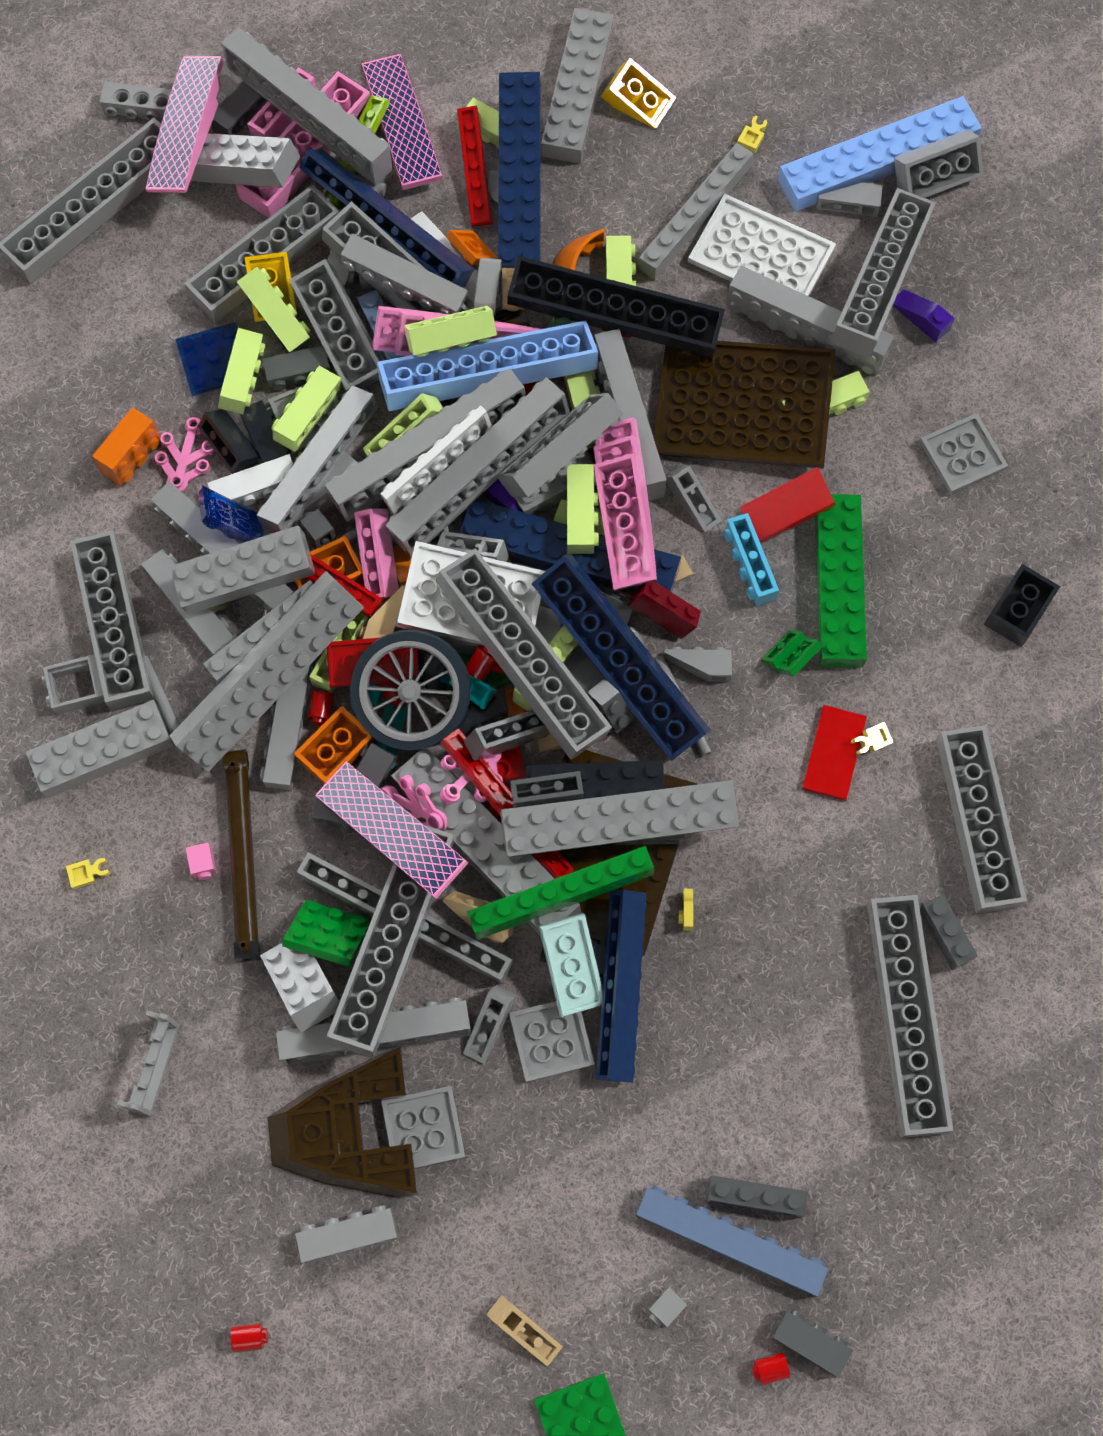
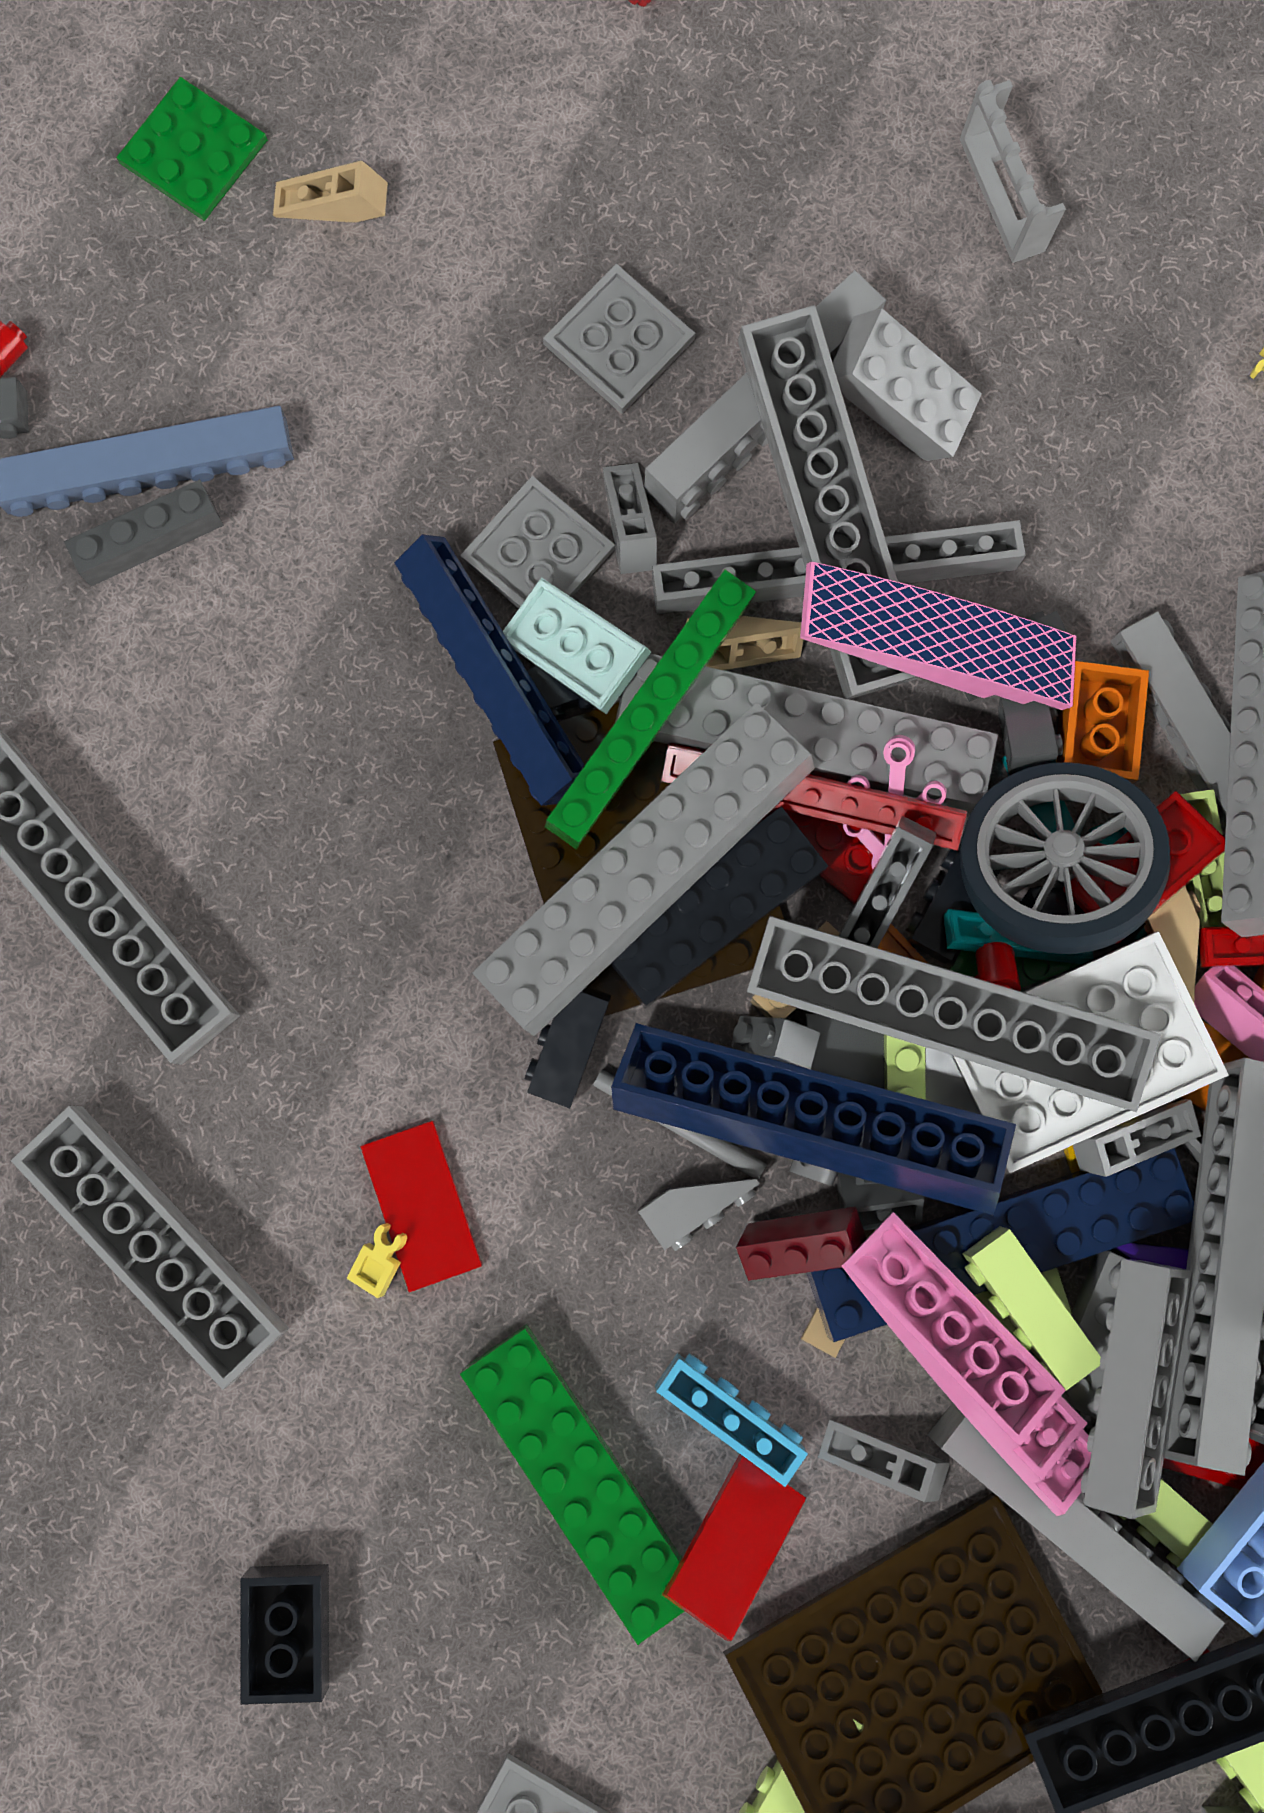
camera: 140 degrees right, 10 degrees up
(201, 861) = (1150, 463): bright pink brick -> none
(241, 855) = (1205, 610): dark brown piece -> none
(320, 707) = (1163, 769): red brick -> none
(323, 1137) = (735, 244): dark brown piece -> none
(326, 933) = (922, 472): green plate -> none
(346, 1235) = (619, 158): light grey brick -> none
(433, 816) = (939, 718): bright pink plant -> none
(547, 789) = (771, 835): dark grey brick -> none
(666, 1308) = (172, 333): light grey brick -> none
(686, 915) = (472, 828): light yellow plate -> none
(720, 767) = (567, 1048): none -> black brick
(791, 653) = (575, 1311): green slope -> none
(947, 932) = (102, 1048): dark grey brick -> none

